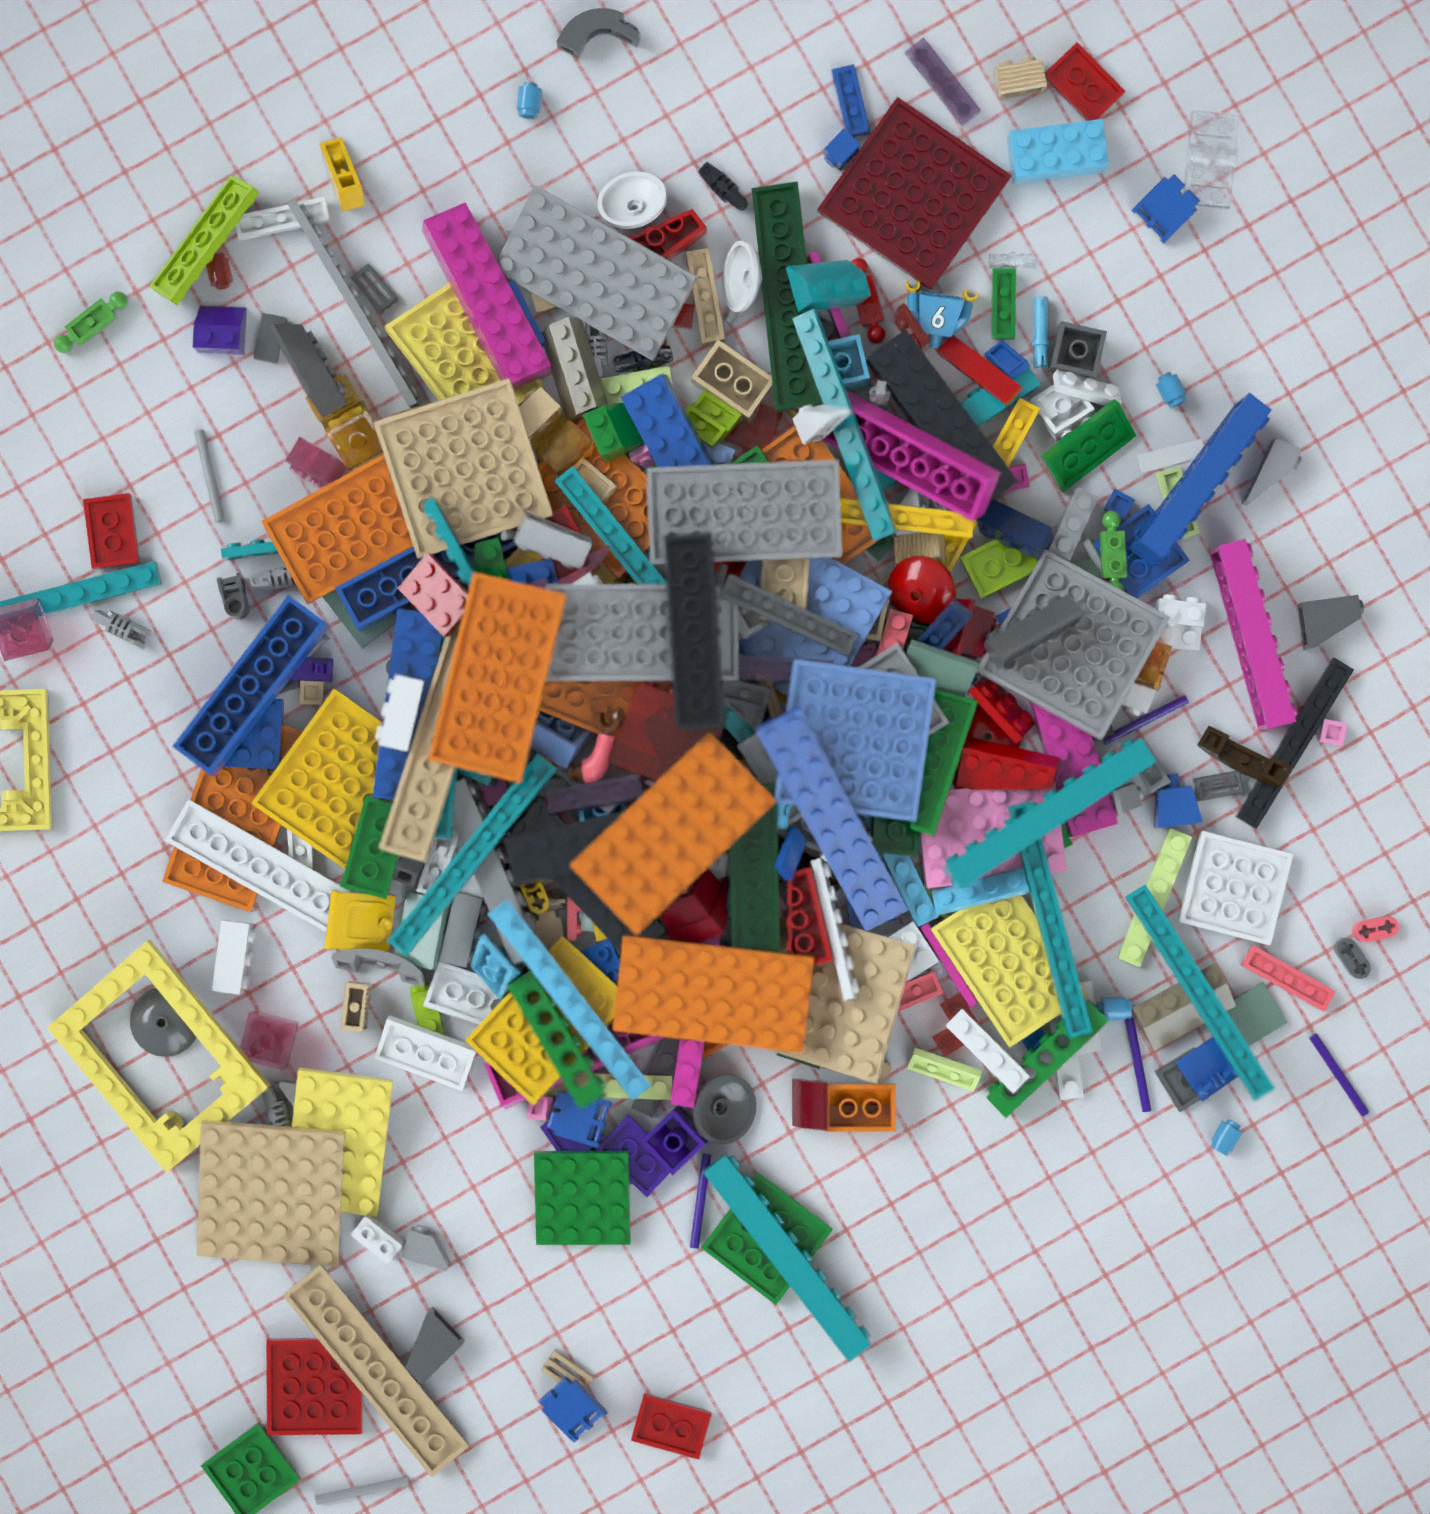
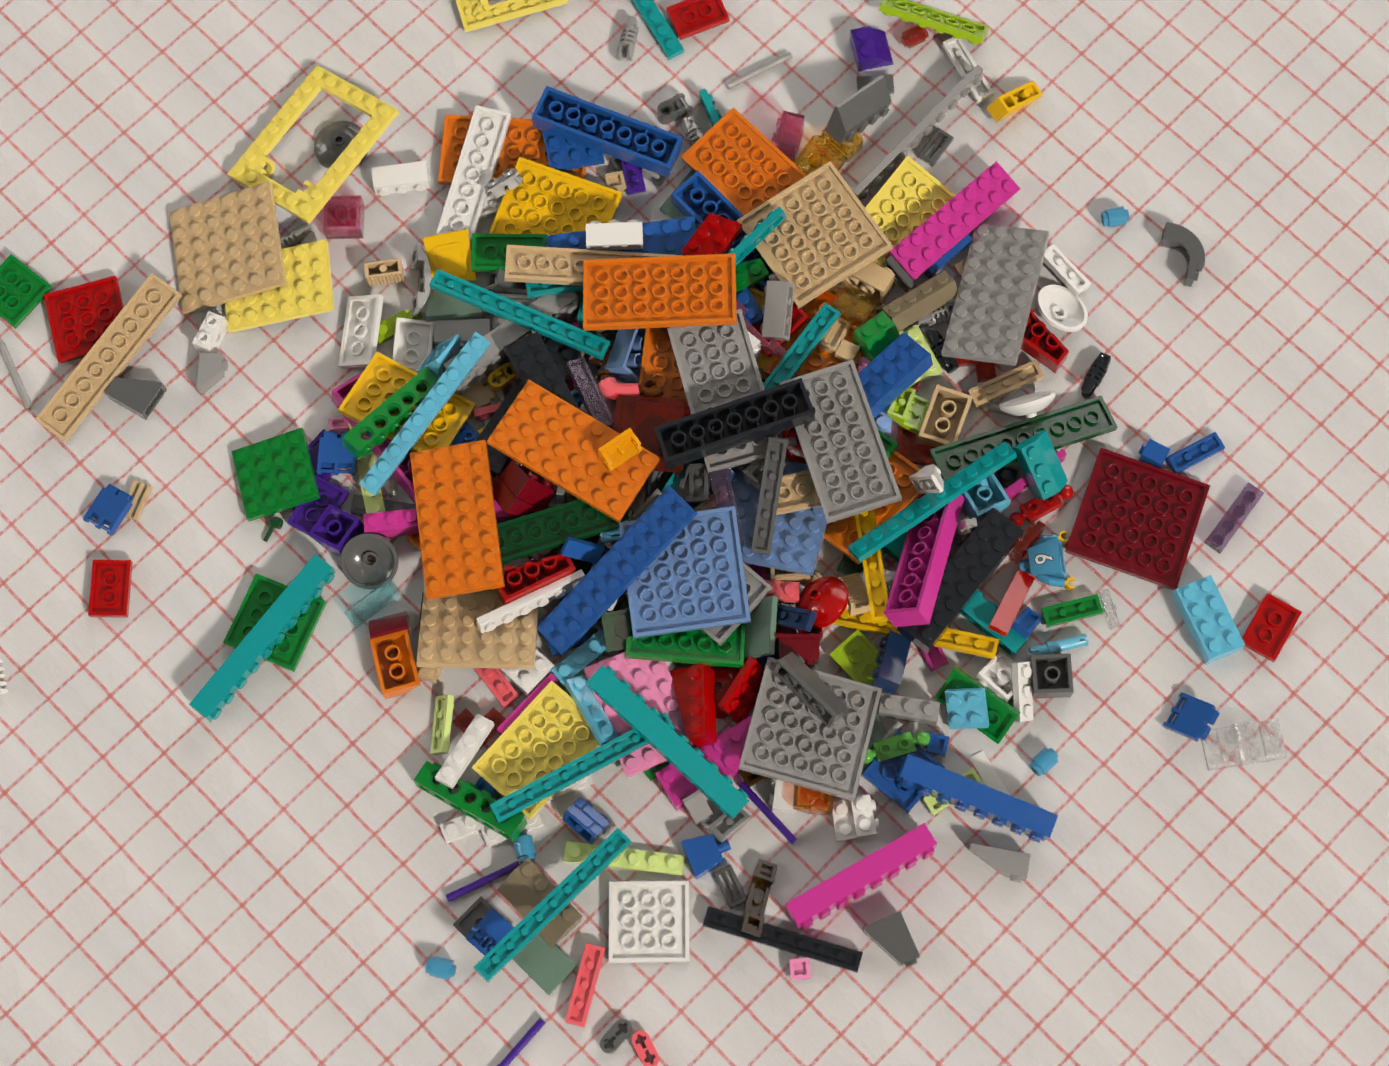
camera: 75 degrees right, 15 degrees down
(284, 842) = (496, 186): none -> light grey hinge
(535, 381) = (901, 276): none -> dark grey tile
(582, 180) = (1065, 270): none -> white plate
(619, 472) = (847, 351): none -> tan tile
(642, 1210) = (274, 523): none -> dark green hand
(692, 777) = (619, 449): none -> light orange hinge
(700, 1203) = (286, 566): dark purple bar -> none
(774, 1116) = (373, 603): none -> clear light blue plate
(1020, 78) = (1257, 575): tan brick -> none
(1090, 458) = (967, 708): none -> medium azure plate
(1102, 929) = (586, 820): none -> blue brick

